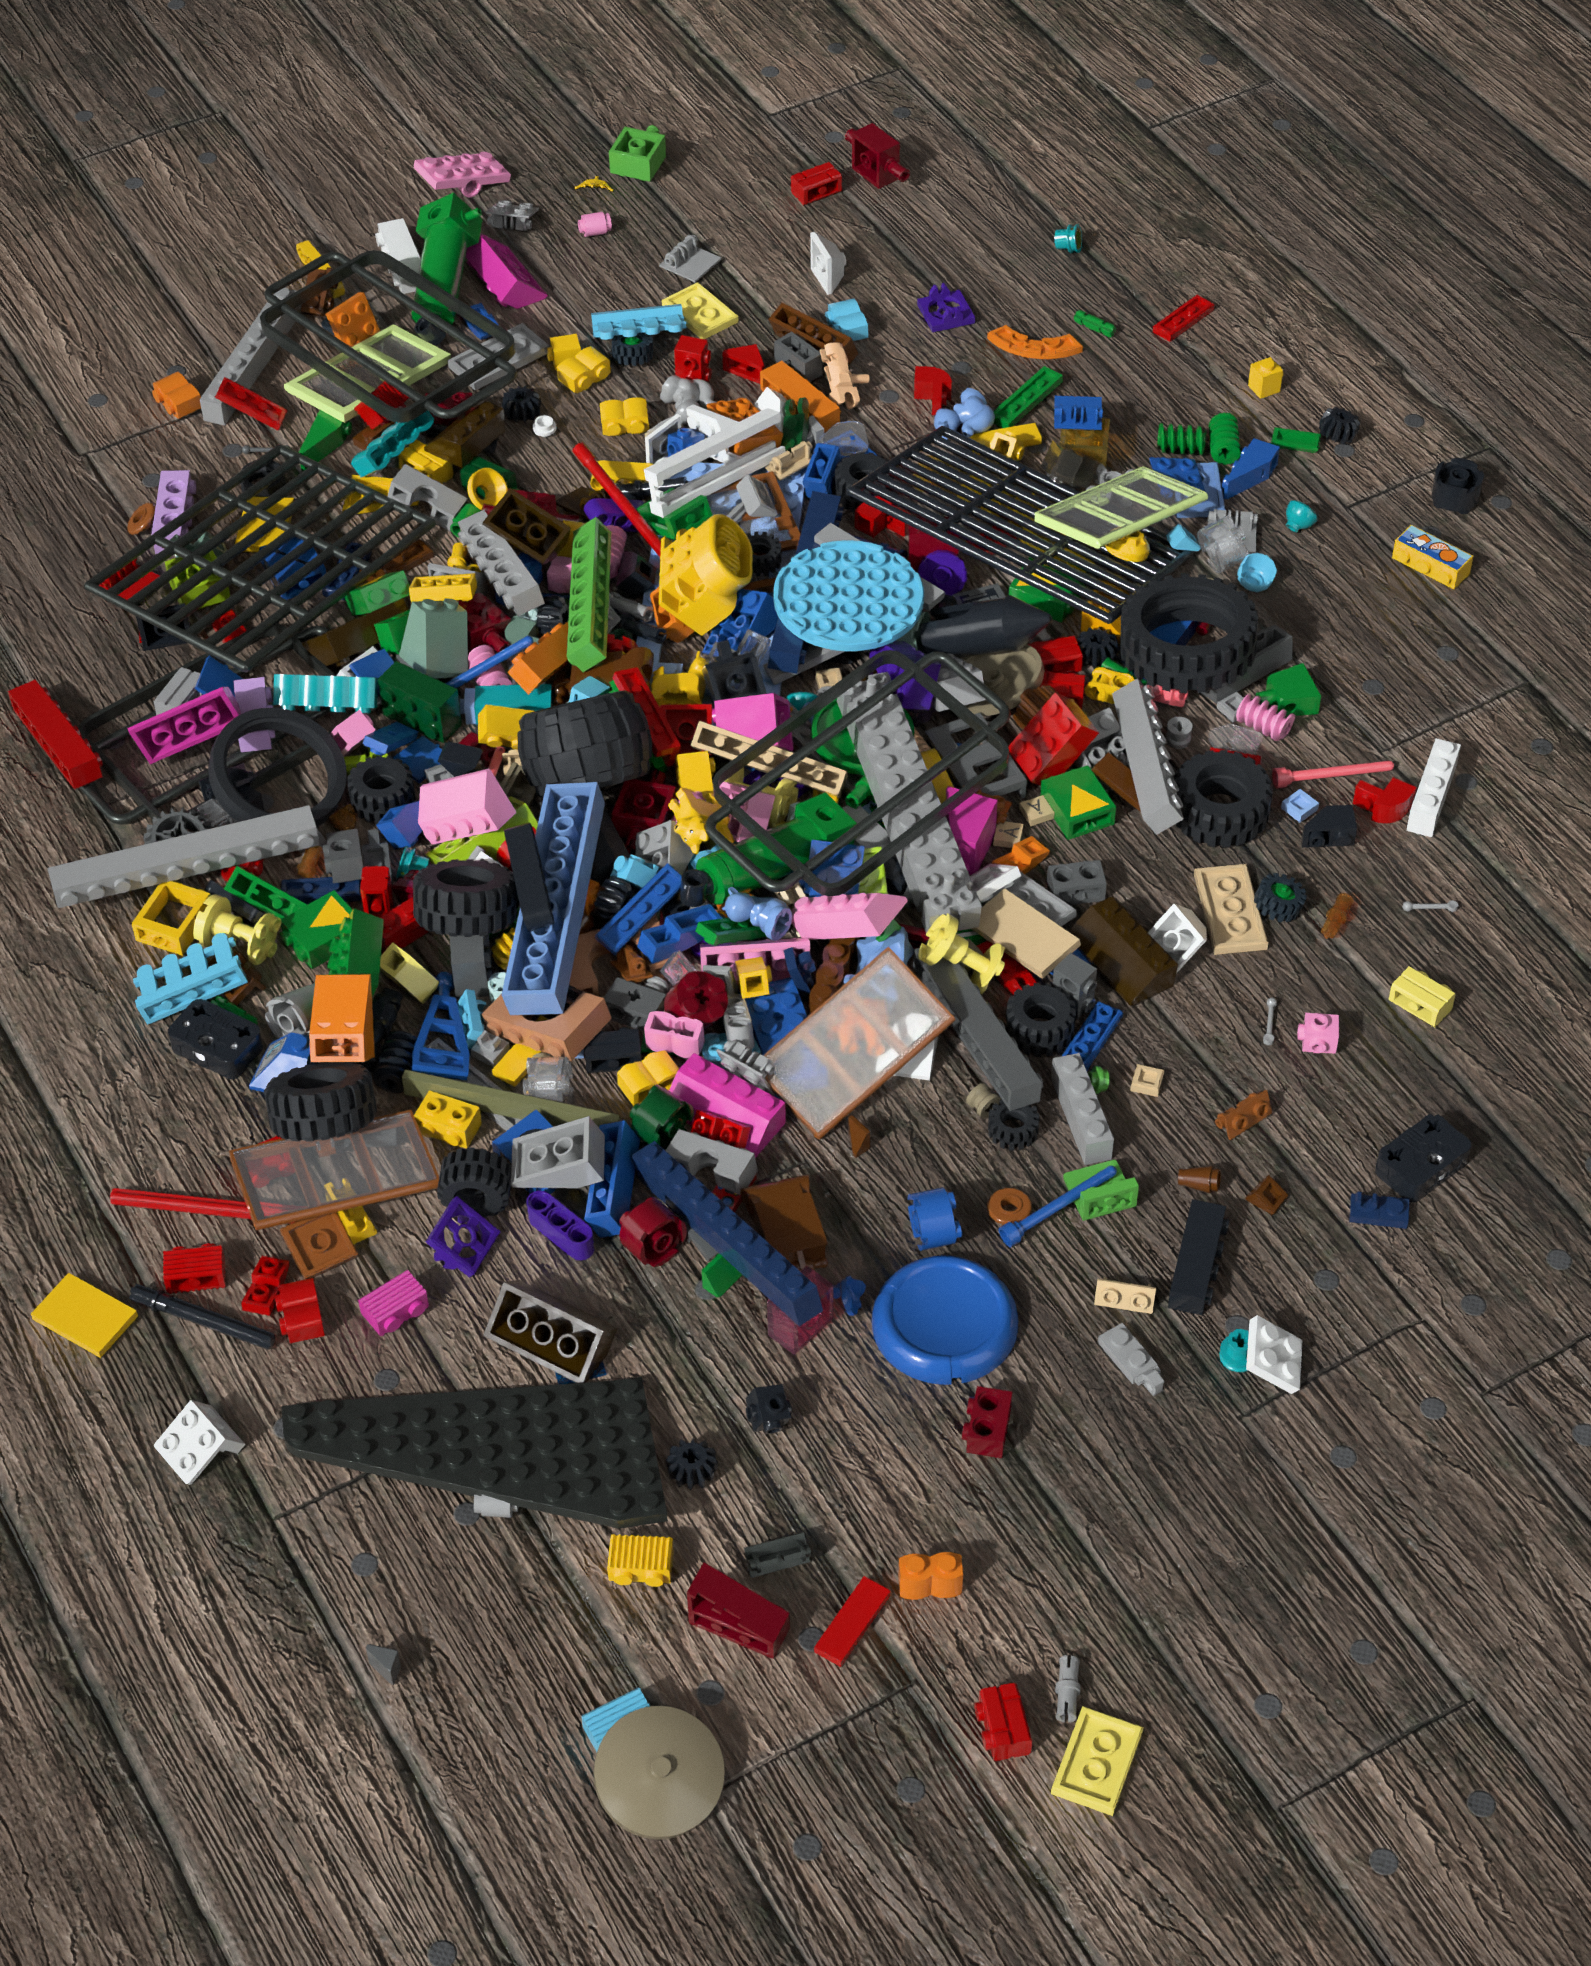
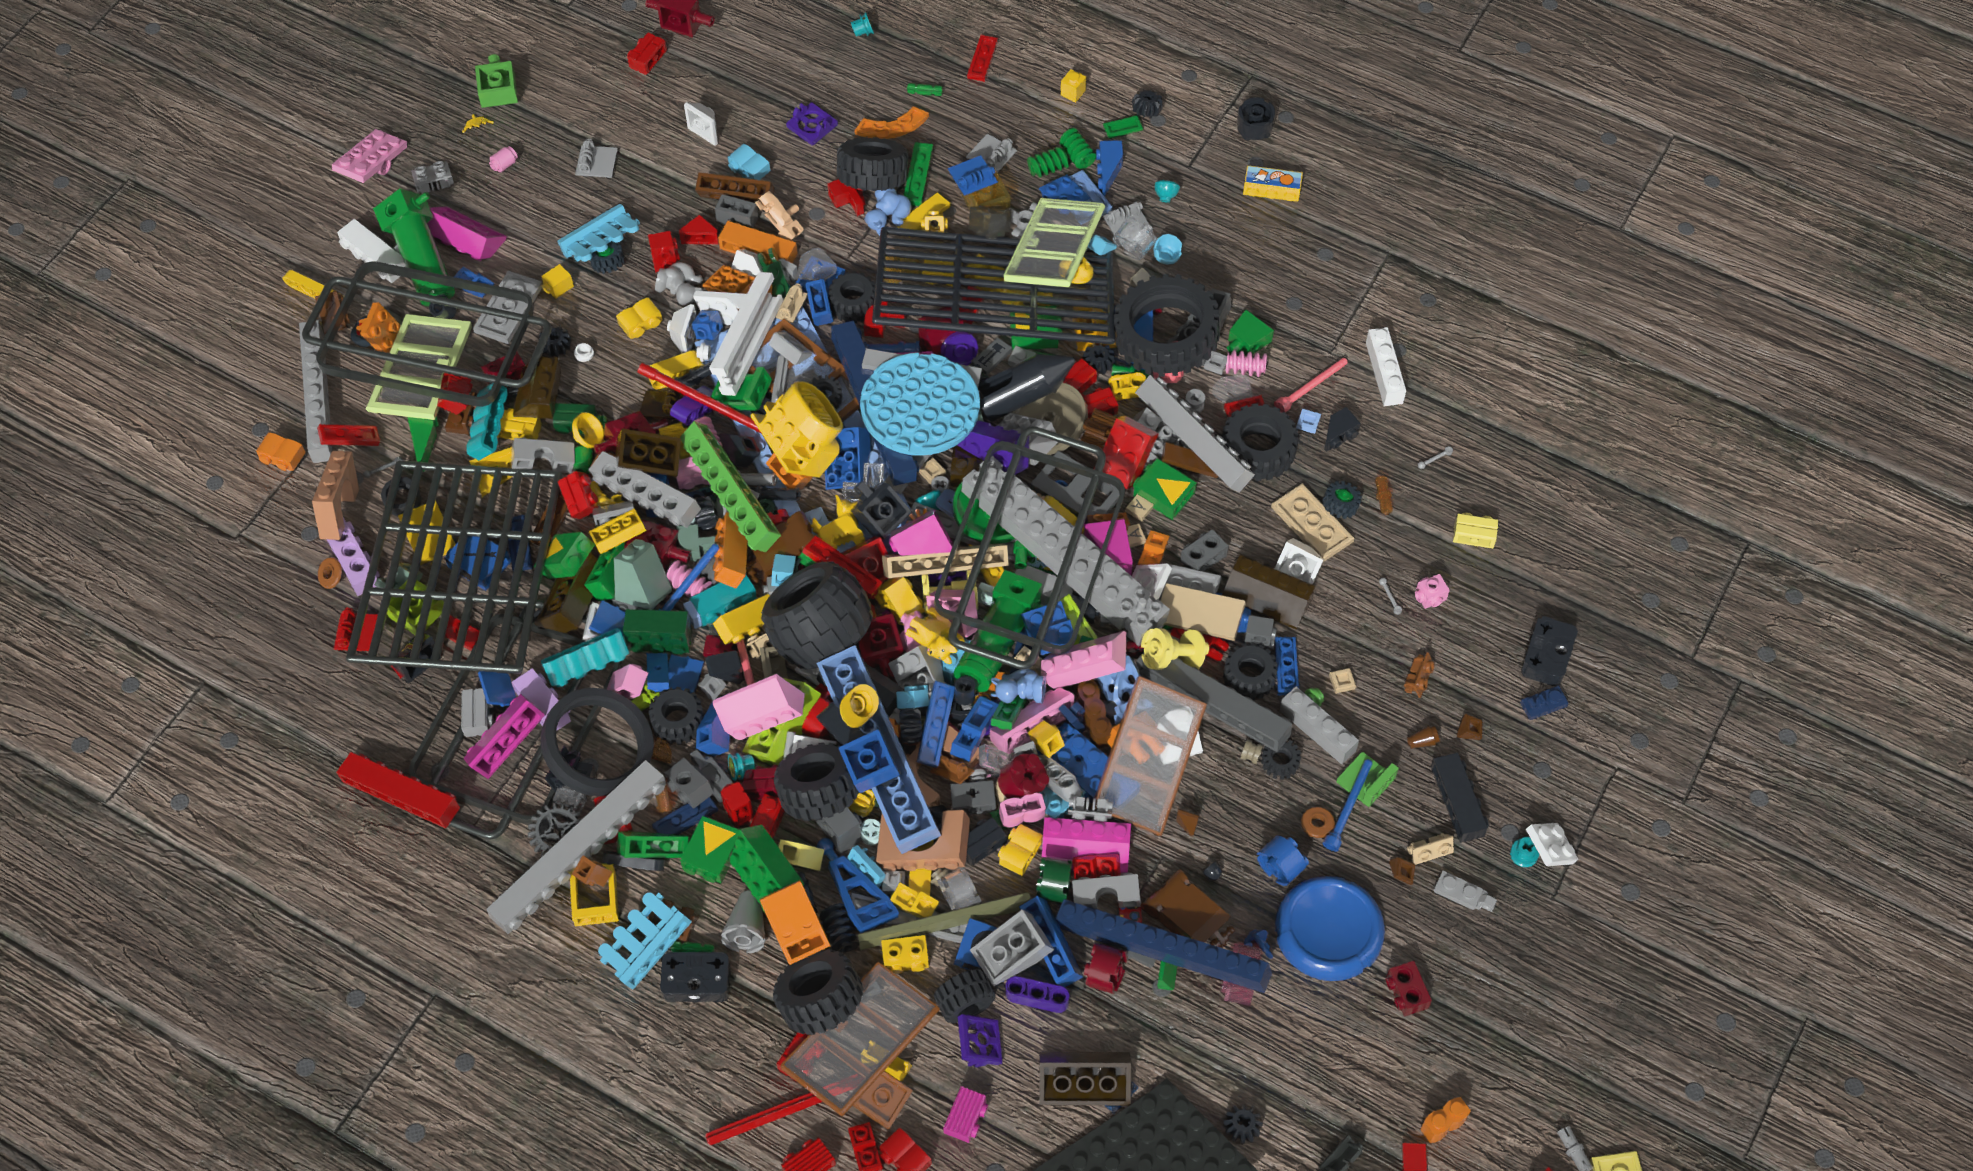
camera: 30 degrees left, 10 degrees up
(173, 437) = (336, 485): none -> nougat arch
(177, 883) = (591, 872): none -> dark orange brick
(218, 919) = (641, 884): light yellow piece -> none
(280, 1057) = (758, 971): slope -> none
(434, 544) = (578, 494): none -> red brick
(493, 1071) = (912, 902): none -> yellow slope
(518, 885) = (869, 761): none -> blue brick
(552, 833) = (859, 705): none -> yellow piece
(583, 369) = (581, 291): yellow brick -> none
(702, 311) = (637, 200): light yellow tile -> none
(768, 1408) = (1267, 1058): black brick -> none
(849, 1198) = (1213, 872): none -> black hinge
(974, 361) = (872, 164): none -> black tyre
(1075, 1302) = (1402, 870): none -> reddish brown slope
(1127, 410) = (994, 152): none -> light grey hinge
(1387, 804) = (1362, 393): red brick -> none

